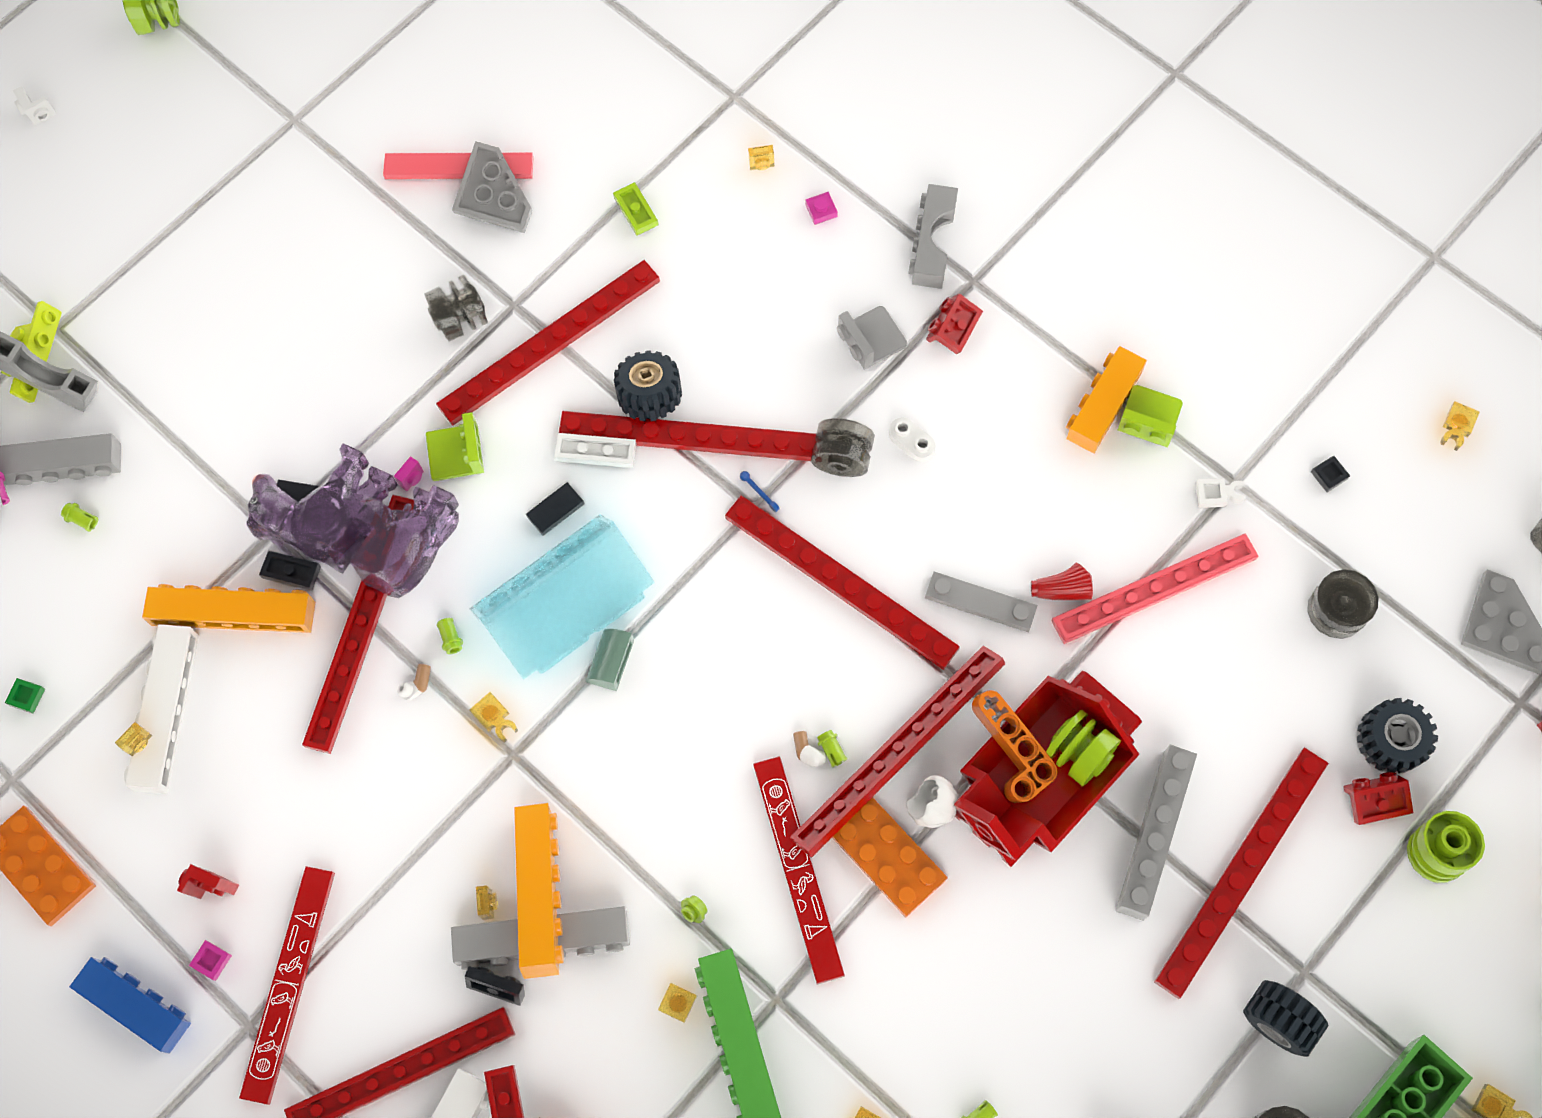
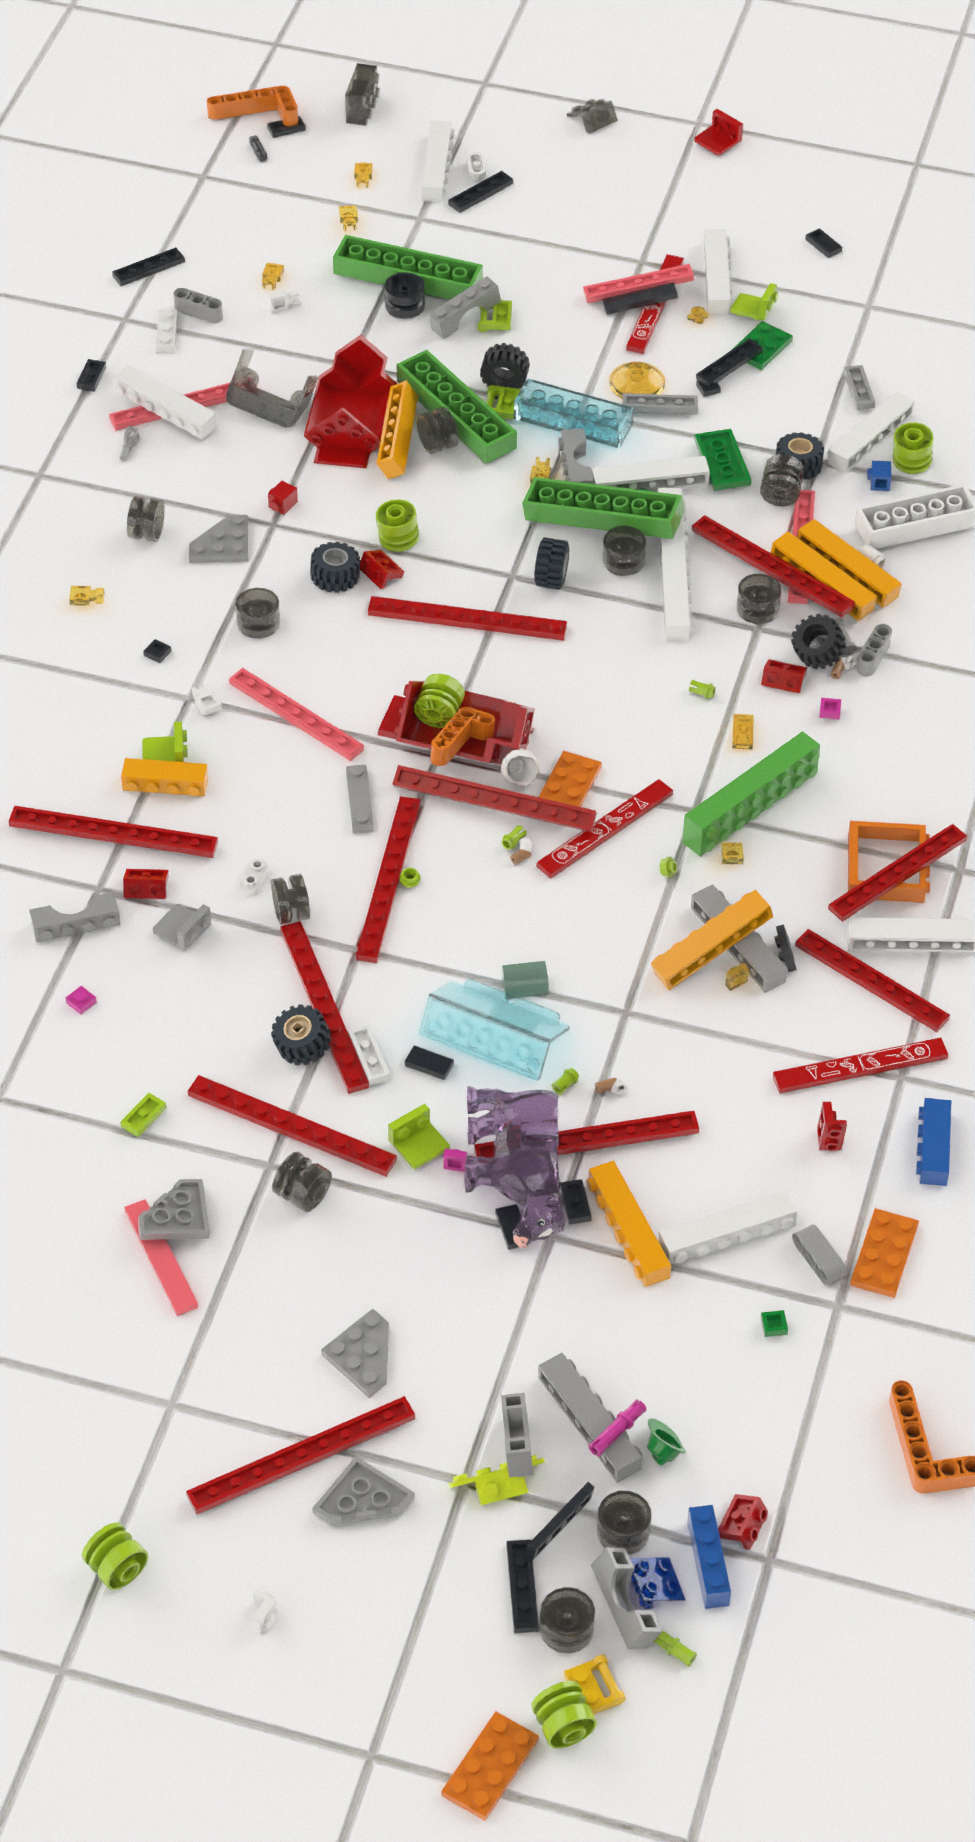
camera: 120 degrees left, 20 degrees down
(71, 788) = (819, 1255): none -> light grey beam
(75, 514) = (616, 1370): lime pin -> none
(90, 231) = (362, 1495): none -> light grey plate
(134, 739) = (763, 1211): clear yellow plate -> none
(165, 201) = (300, 1455): none -> red plate
(210, 960) = (876, 1112): dark pink plate -> none
(243, 296) = (362, 1353): none -> light grey plate
(492, 714) = (608, 1029): clear yellow plate -> none
(745, 476) = (337, 962): blue hinge -> none
(761, 157) = (55, 1049): clear yellow plate -> none
(827, 595) = (409, 877): none -> lime plate
(1045, 320) = (113, 831): none -> red plate
(1068, 585) = (321, 753): piece -> none
(1156, 833) = (470, 658): light grey brick -> none

